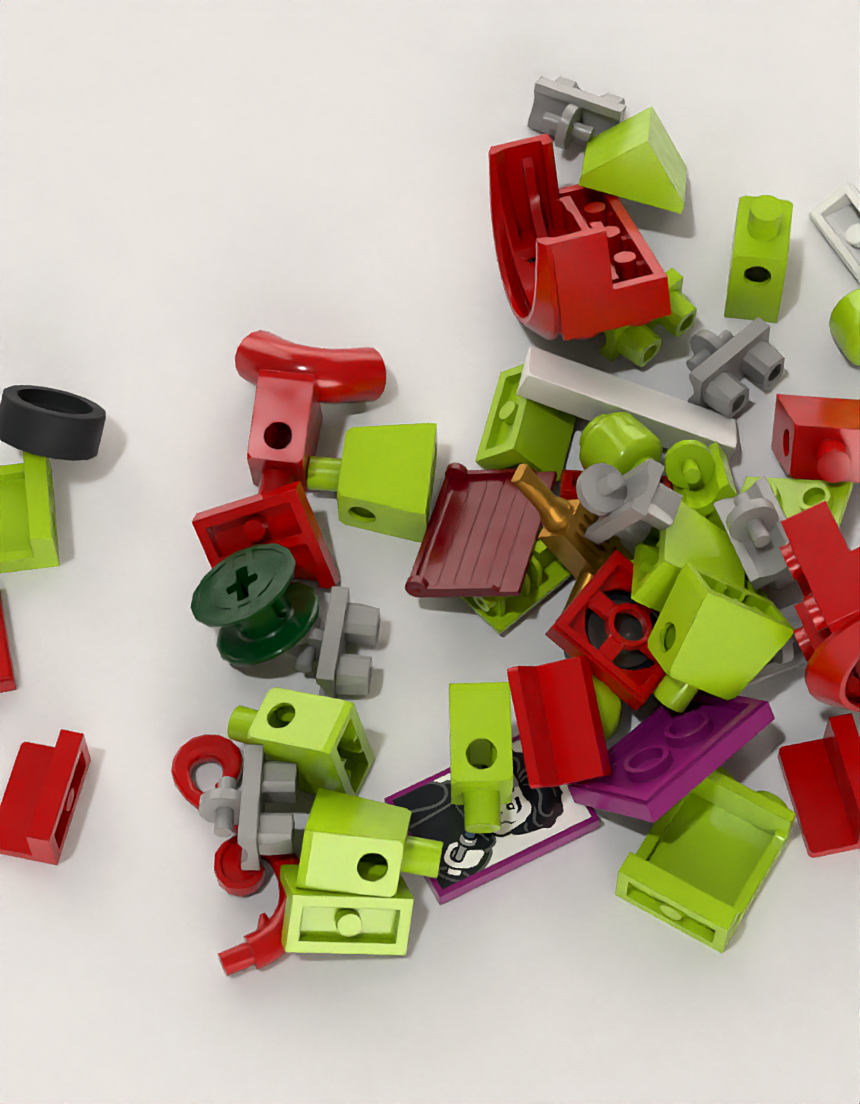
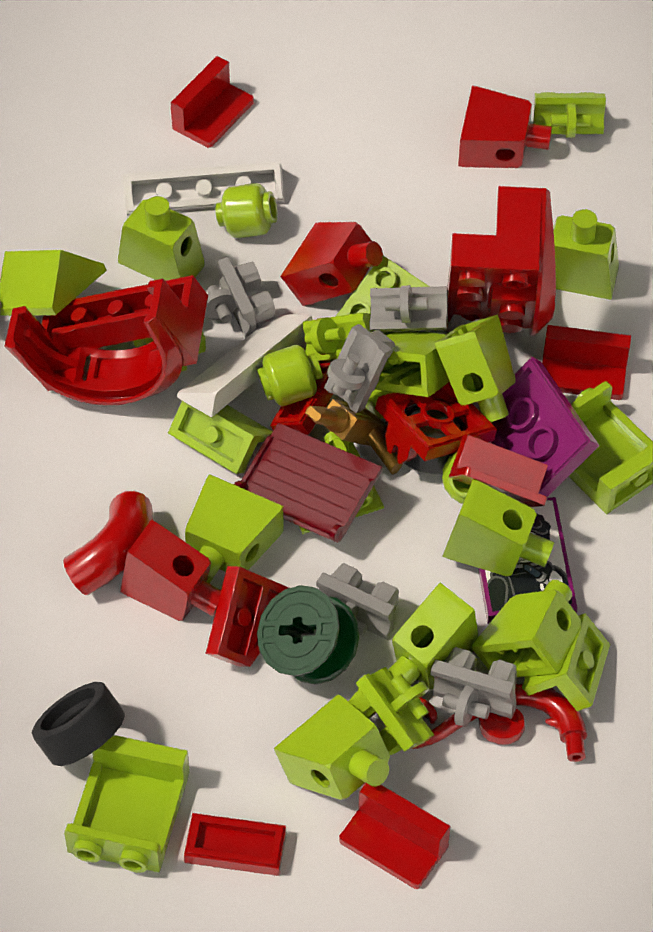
camera: 70 degrees left, 5 degrees down
(116, 690) = (335, 751): none -> lime torso
(187, 729) = (396, 706): none -> lime hips

